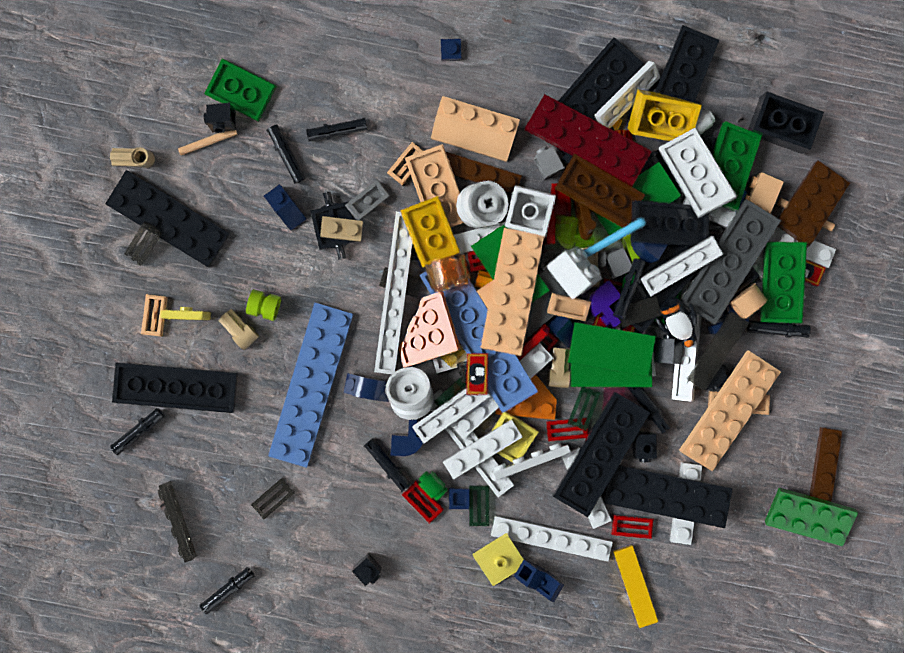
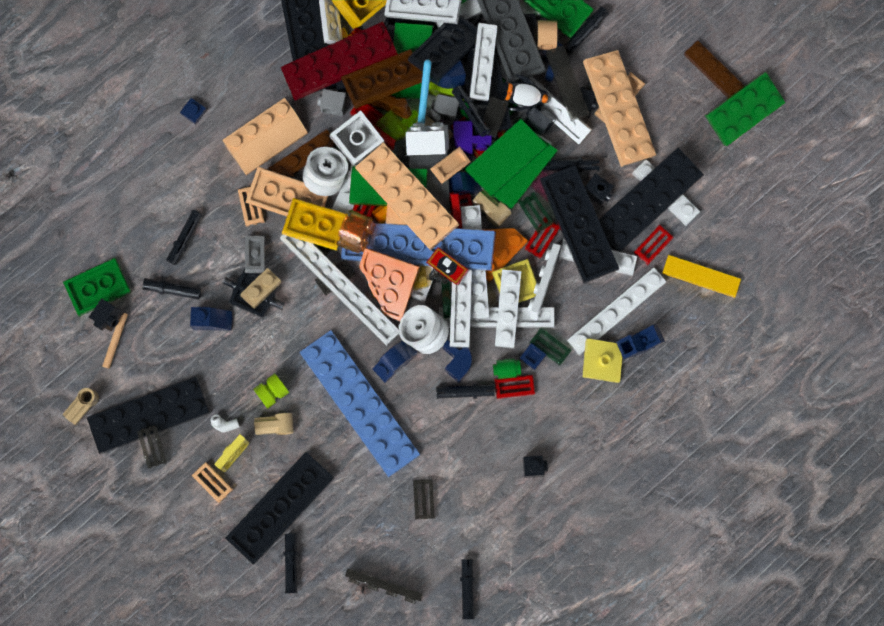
camera: 50 degrees left, 10 degrees down
(206, 287) = (223, 425): none -> white arm

